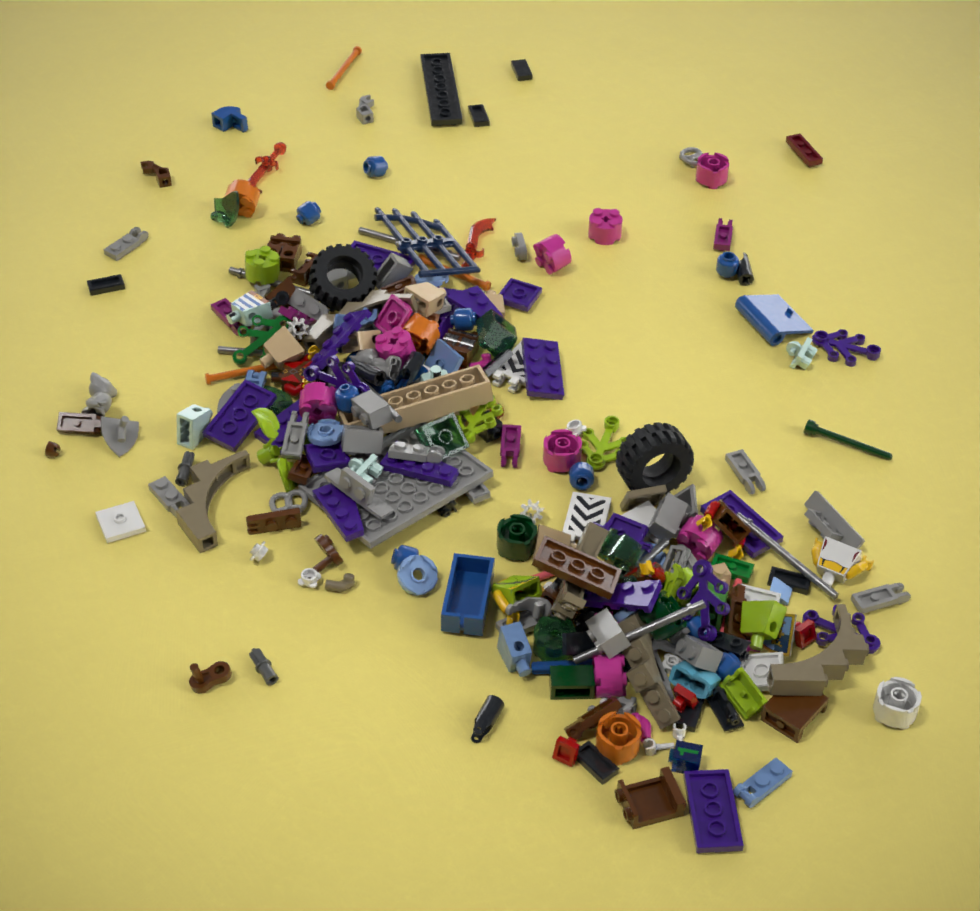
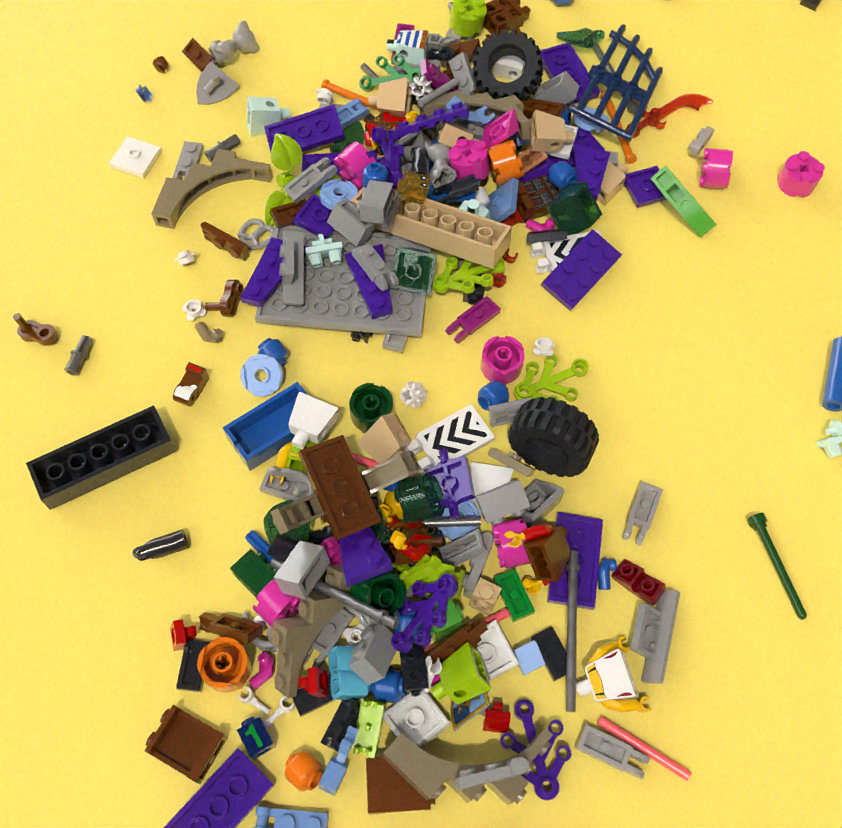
camera: 45 degrees right, 20 degrees up
(67, 476) = (144, 93): none -> plate
(219, 385) = (324, 96): none -> white plate
(311, 322) = (439, 91): none -> light grey bar
(359, 232) = (582, 38): none -> clear green arm
(373, 618) = (191, 385): none -> reddish brown leg
(375, 702) = (100, 457): none -> black brick
(385, 384) = (413, 187): none -> clear yellow brick
(496, 561) = (311, 420): none -> white torso
(515, 648) = (246, 508): medium blue torso -> none
(556, 285) = (683, 201): none -> bright green slope
(603, 474) = (503, 409): none -> light grey tile
(735, 748) = (303, 771): none -> orange head
(739, 631) = (433, 669): none -> white hand
(752, 733) = (337, 767): none -> medium blue piece
(763, 511) = (604, 573): none -> blue arm
(785, 509) = (638, 583): none -> dark red slope
(841, 640) = (493, 773): none -> light grey hinge
(905, 581) = (644, 748): none -> coral bar

